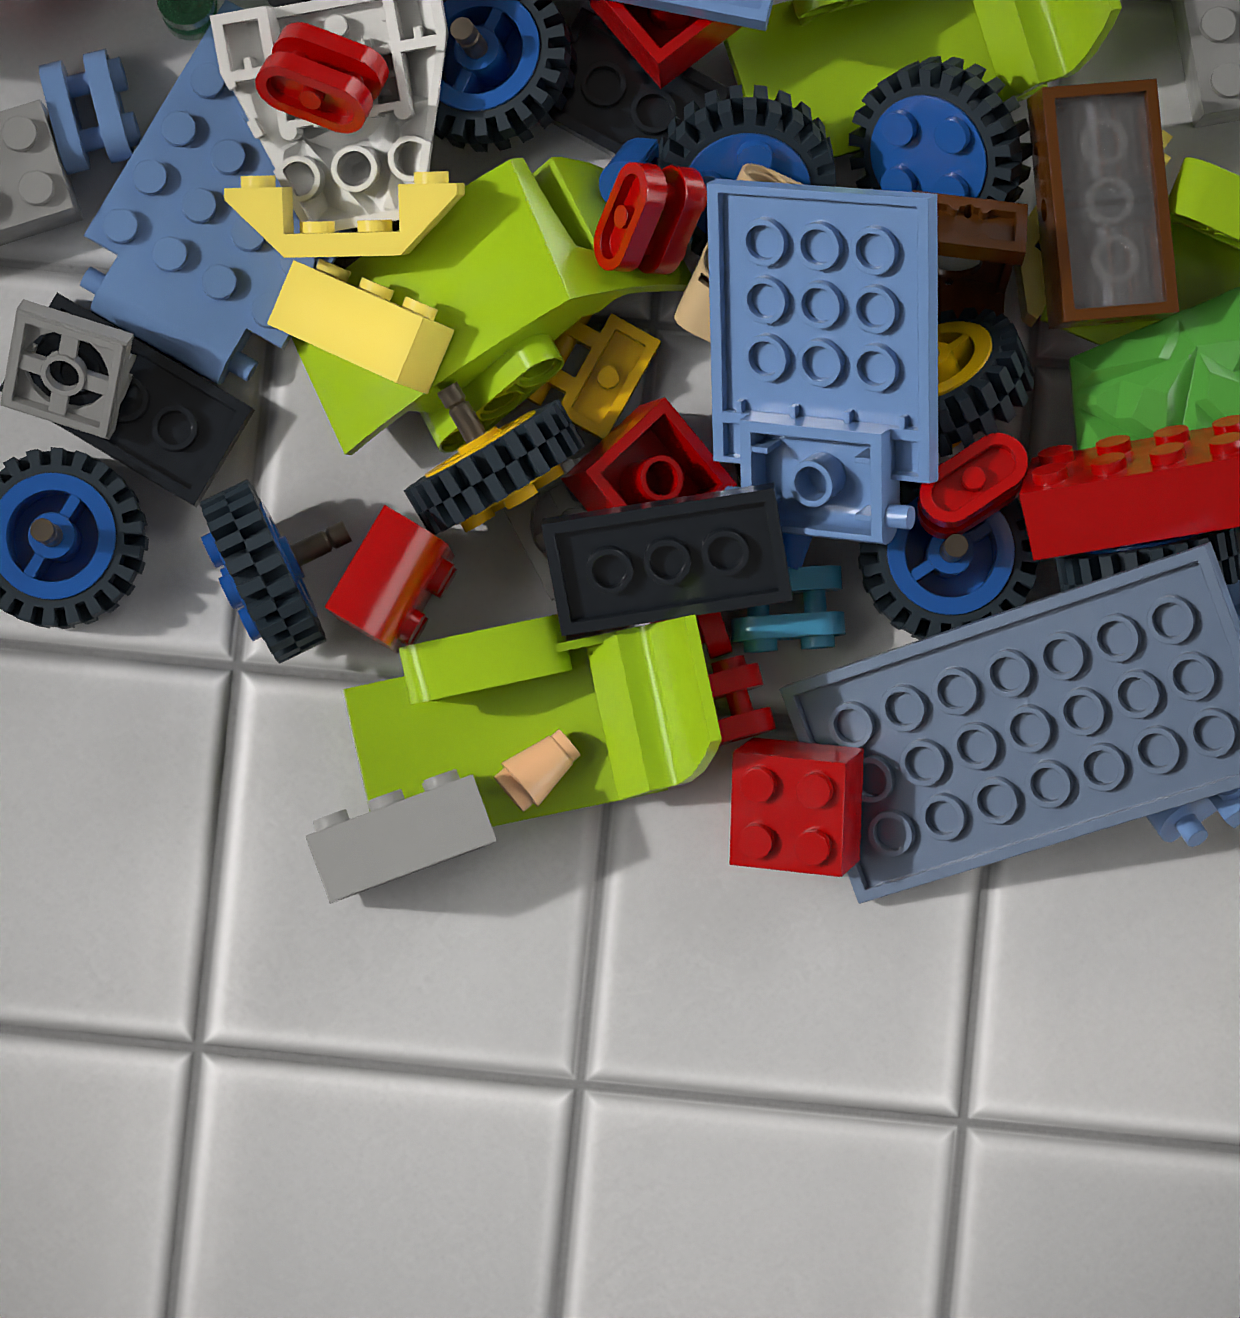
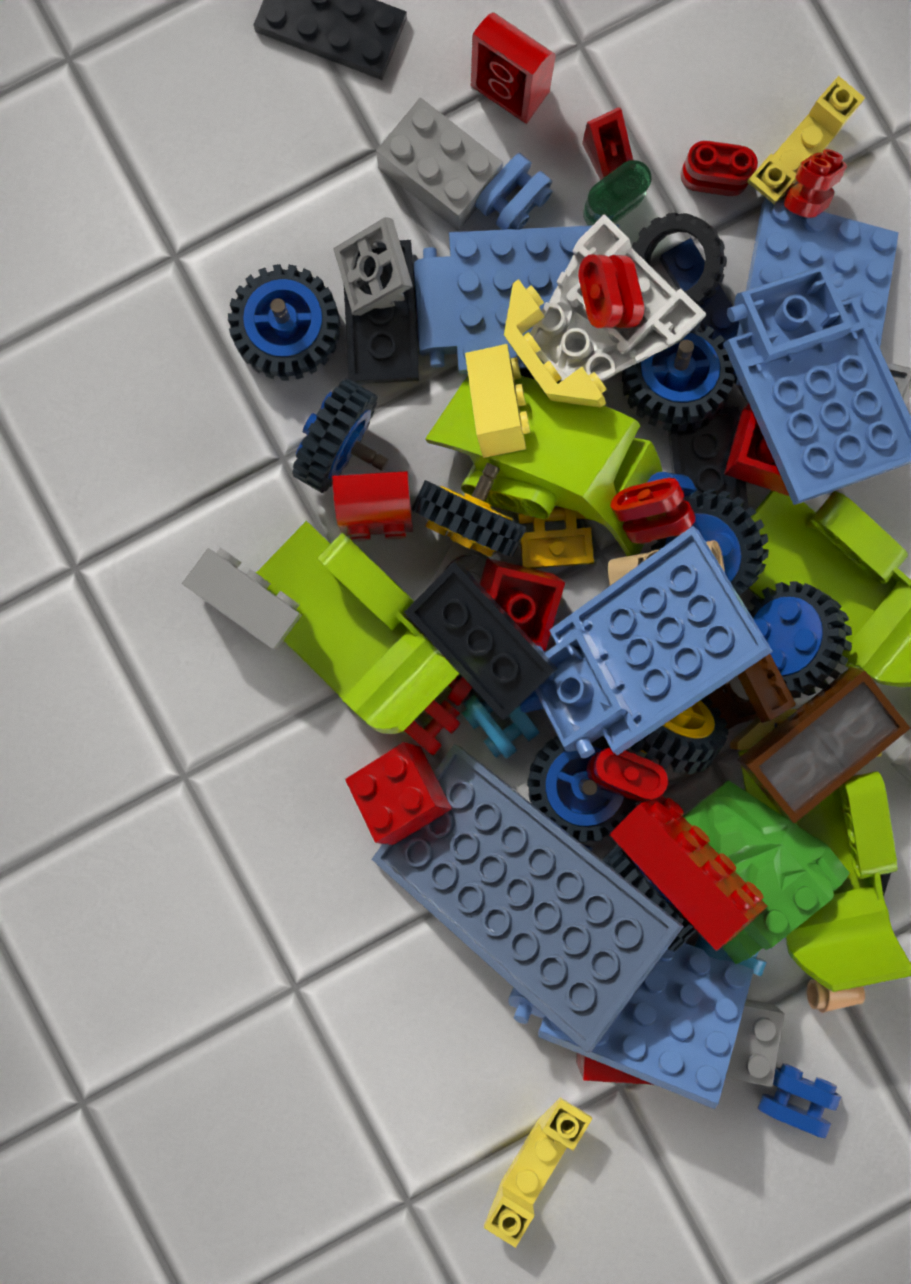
camera: 45 degrees right, 0 degrees up
(536, 770) = (328, 646): light nougat cone -> none

